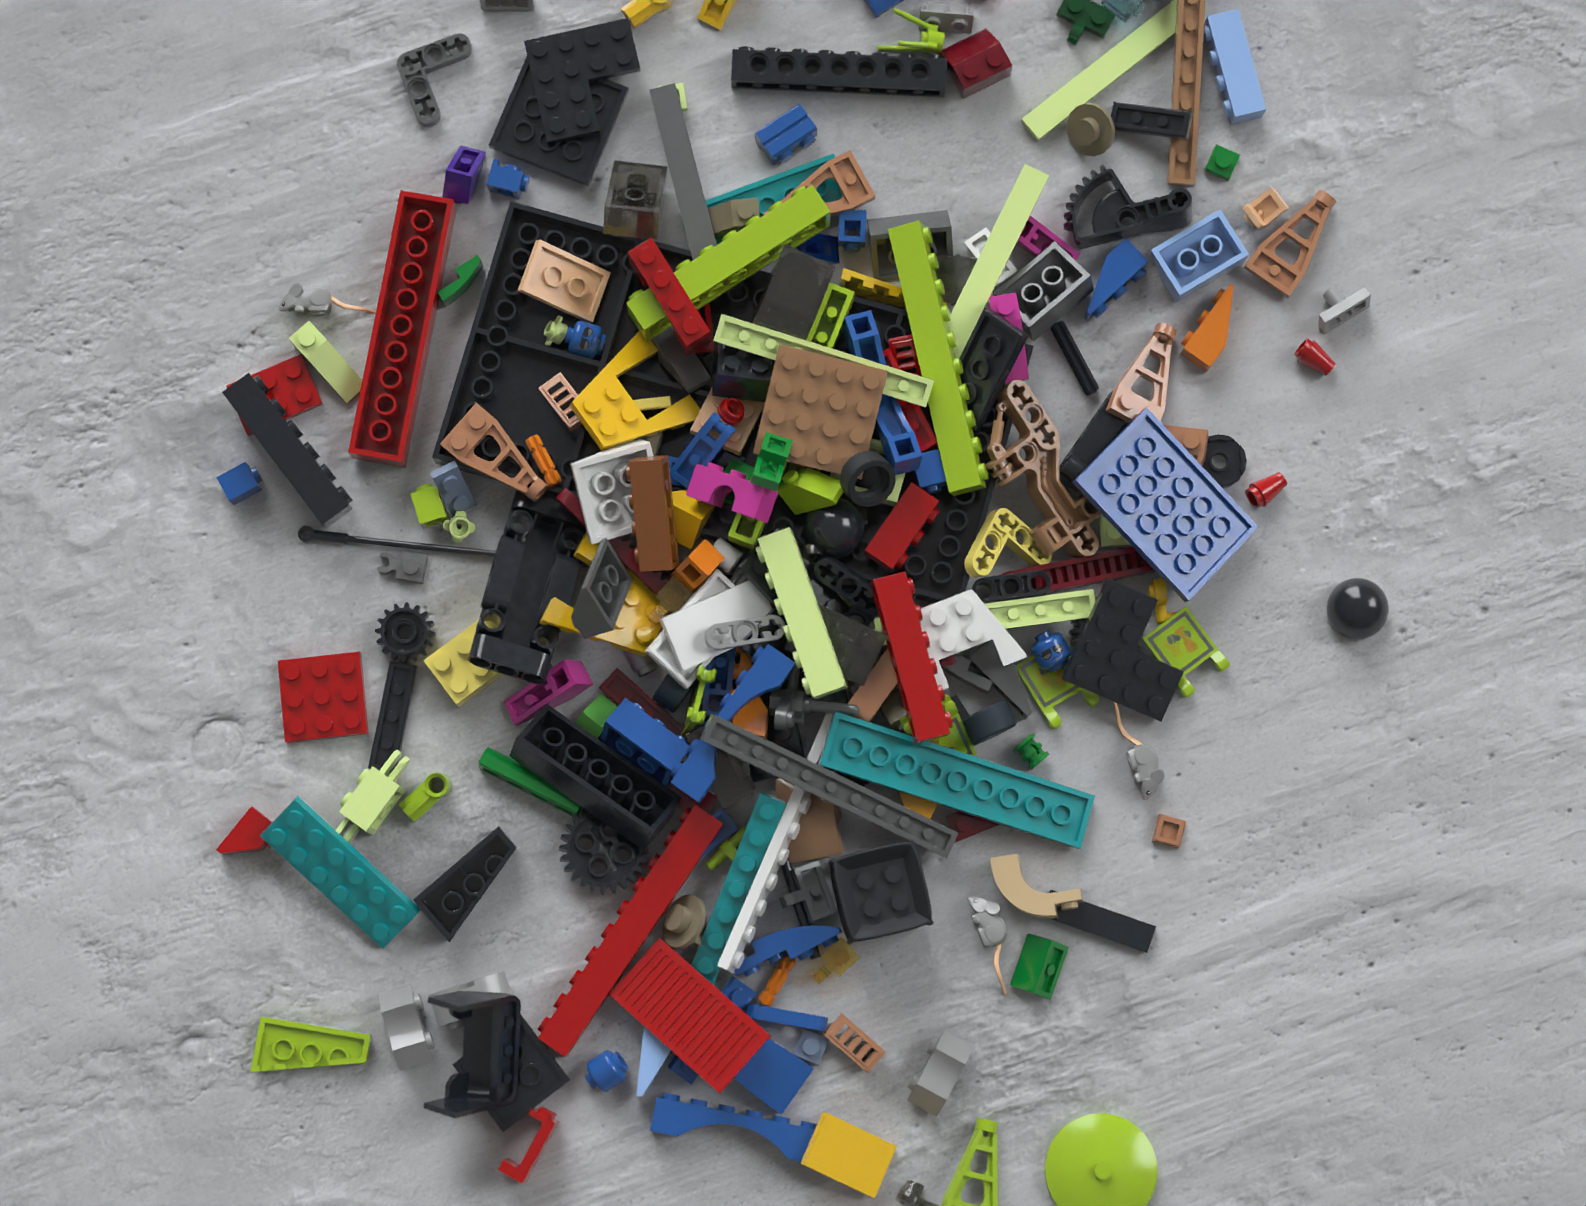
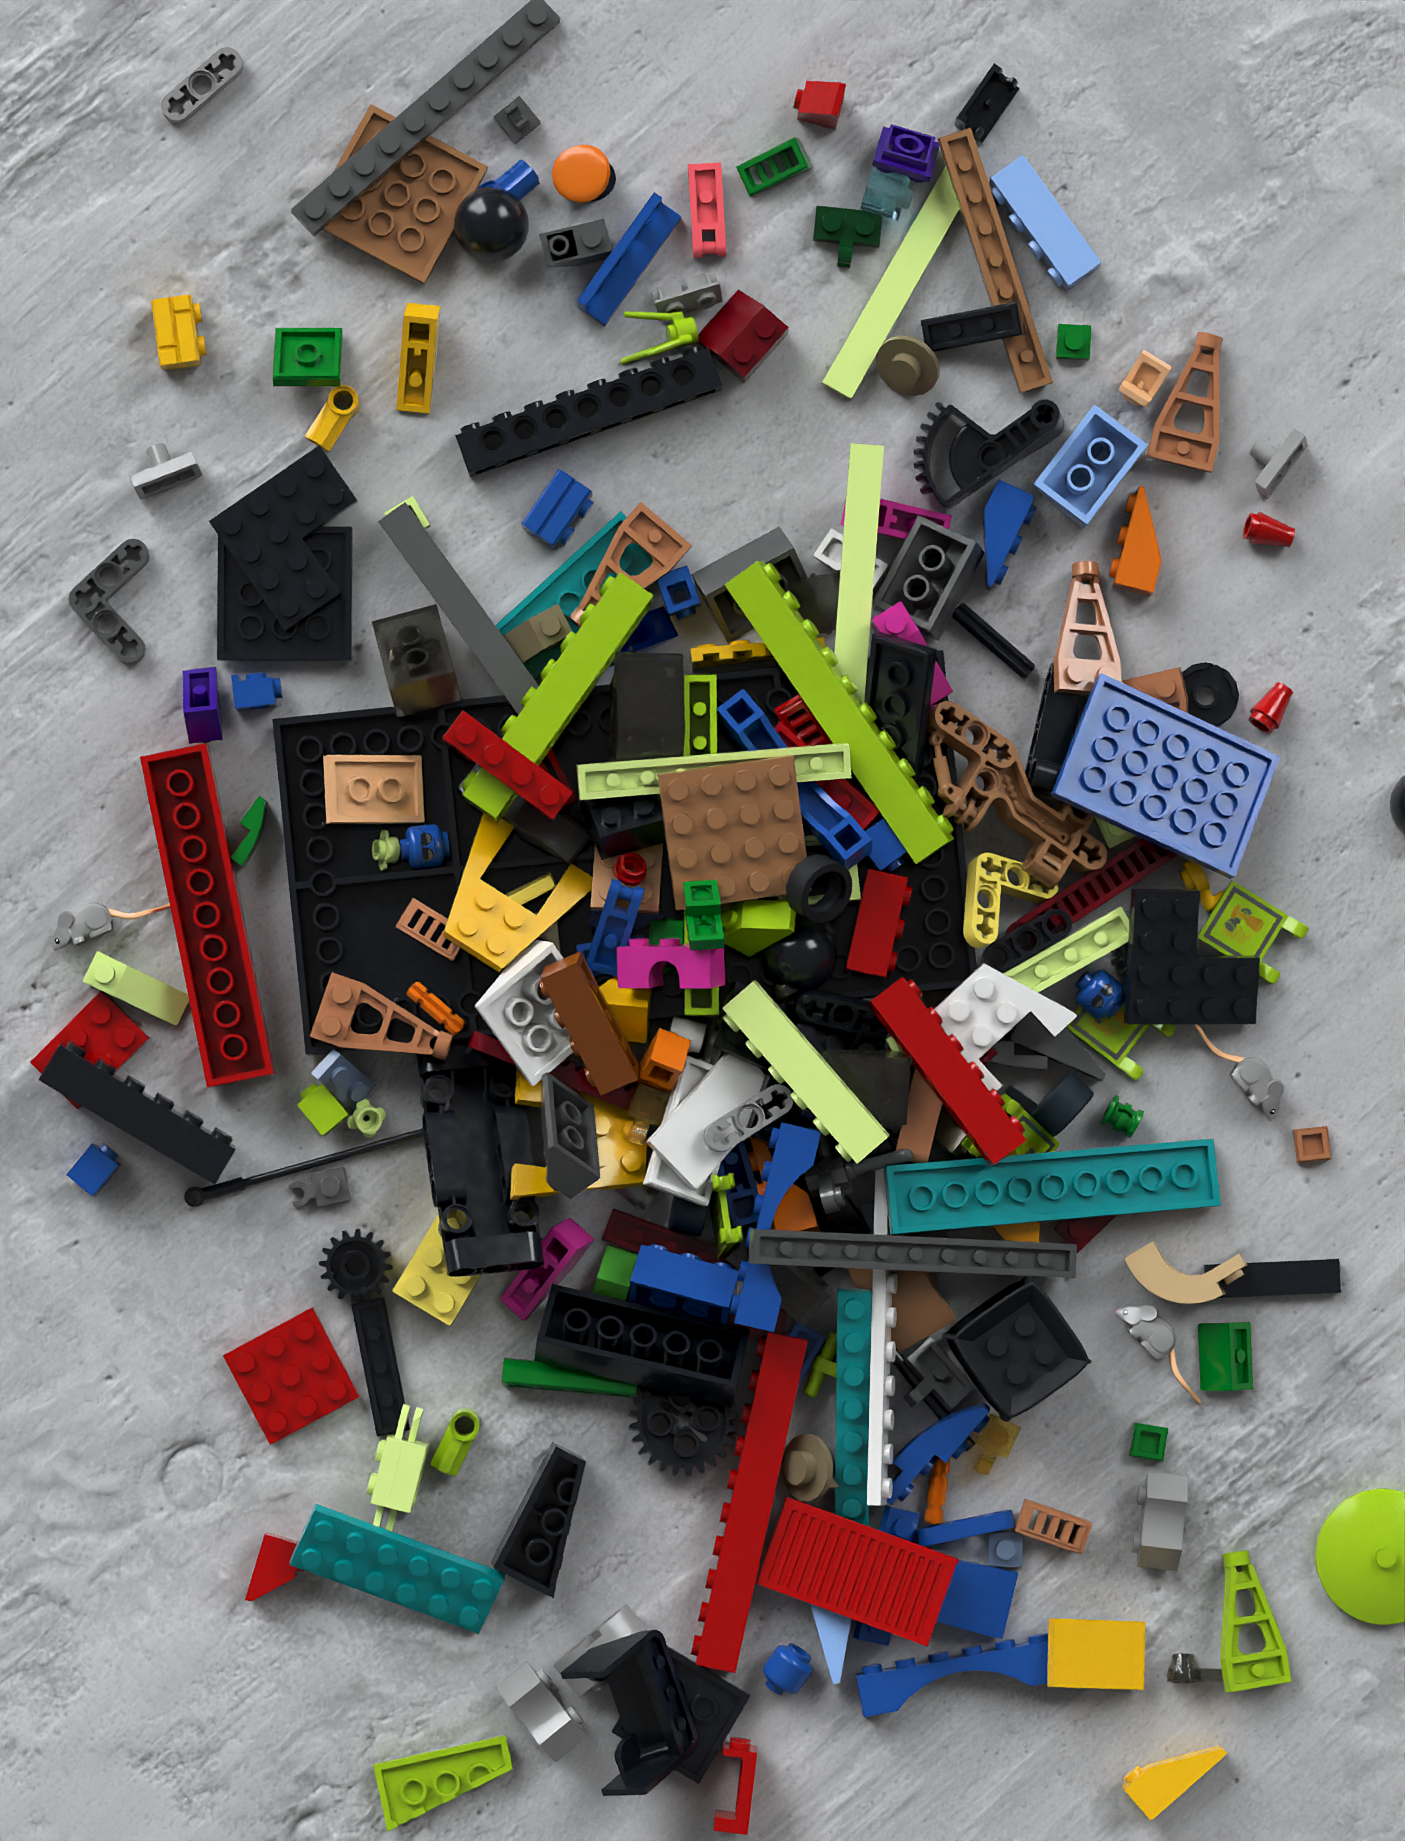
camera: 25 degrees left, 5 degrees up
(954, 1008) = (1148, 1441): none -> green tile

